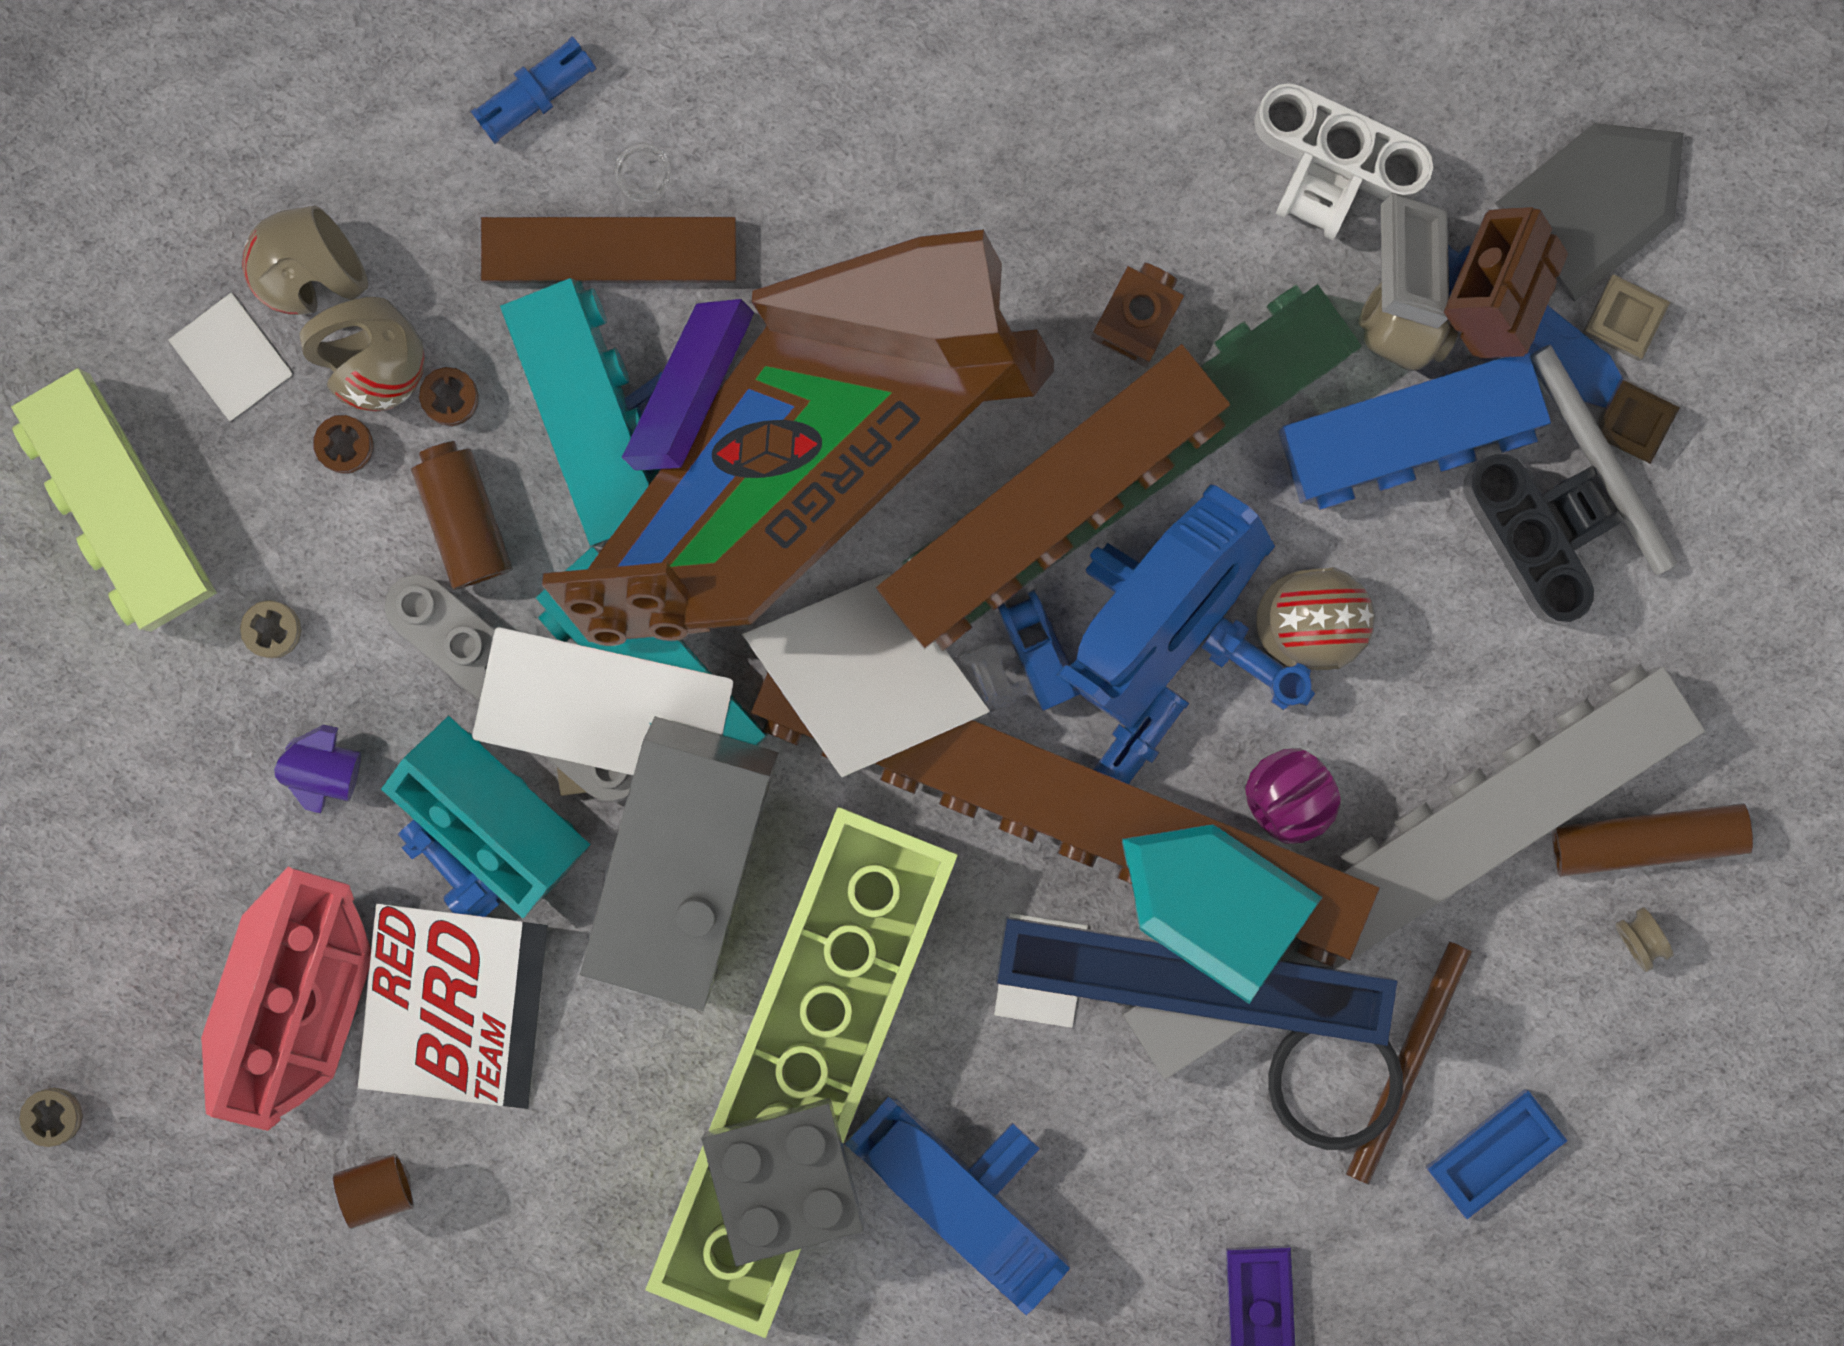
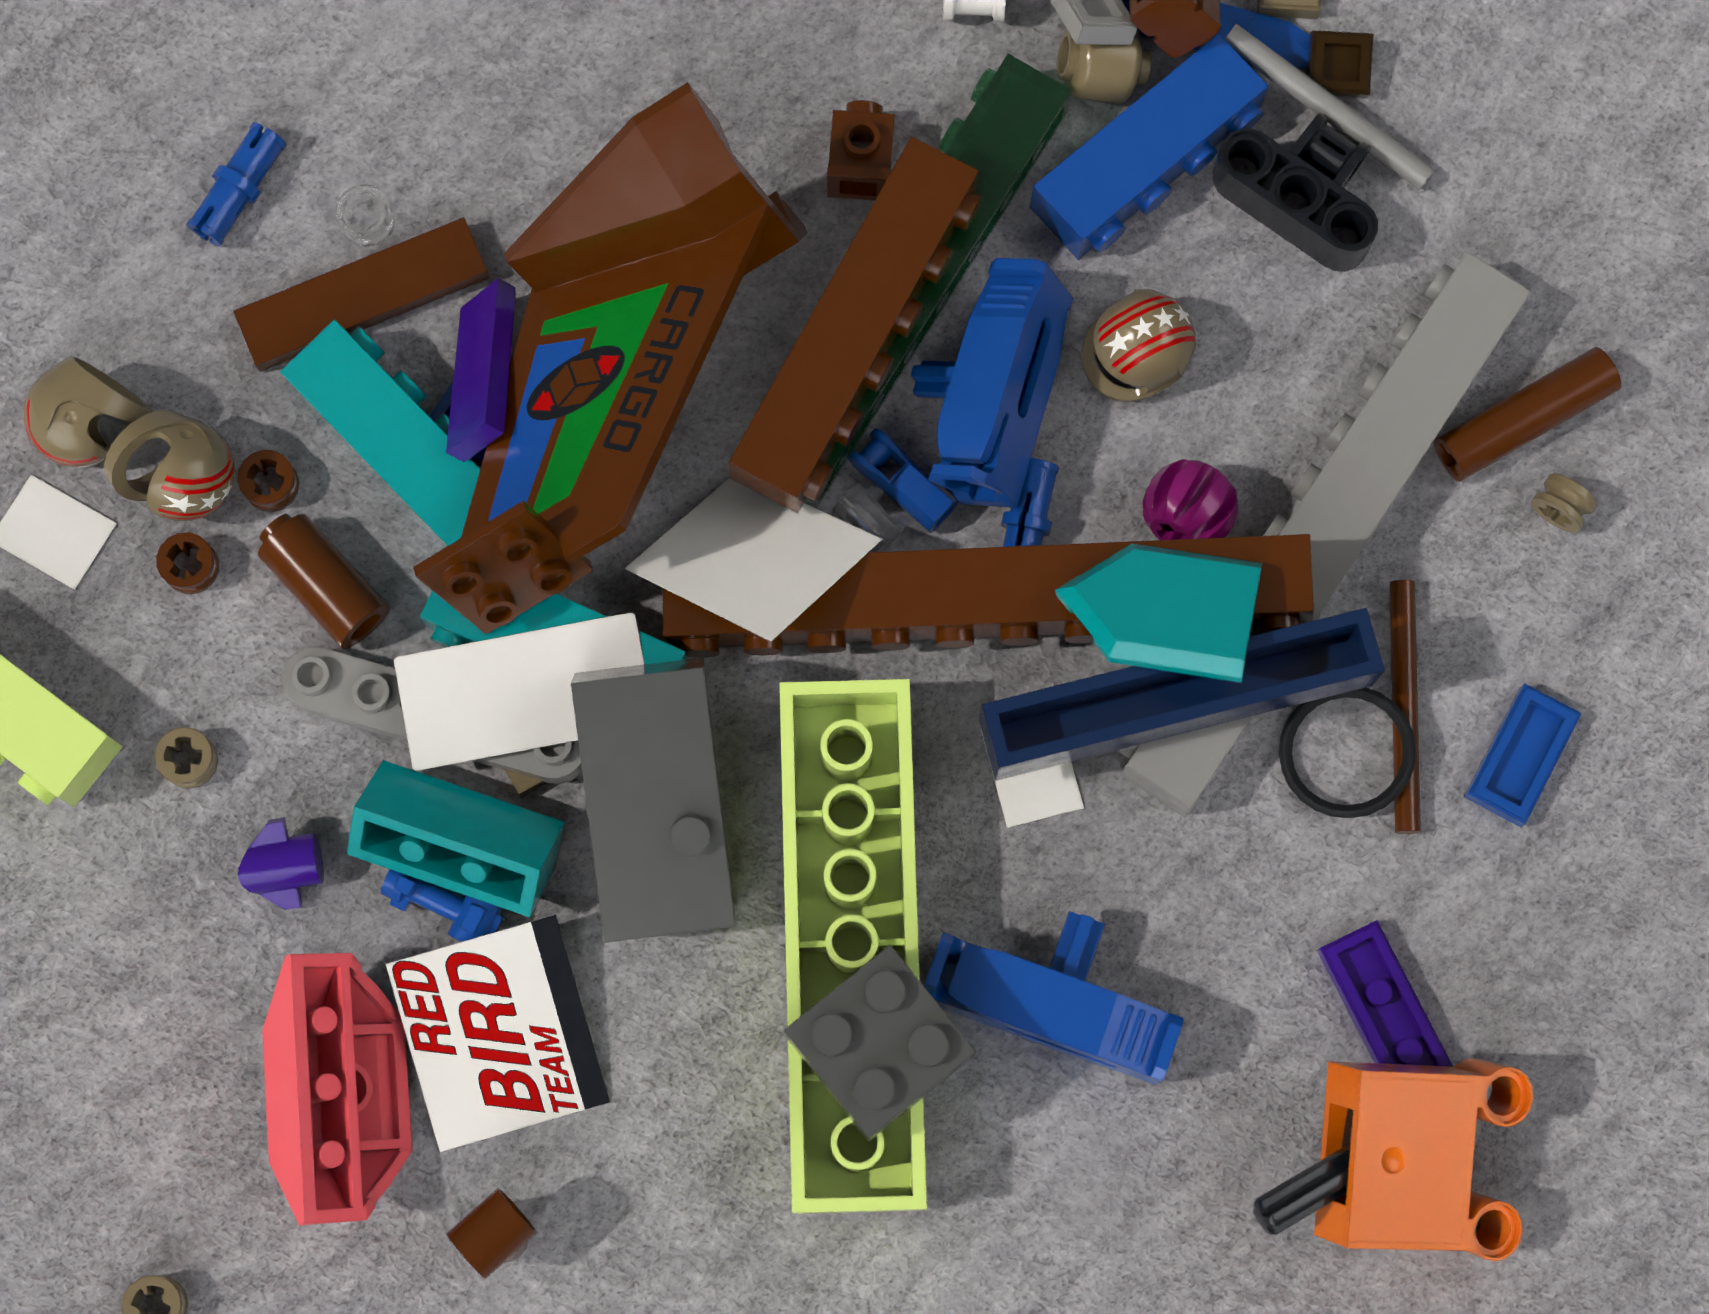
camera: 20 degrees left, 10 degrees down
(1287, 684) = (1140, 414): blue bar -> none

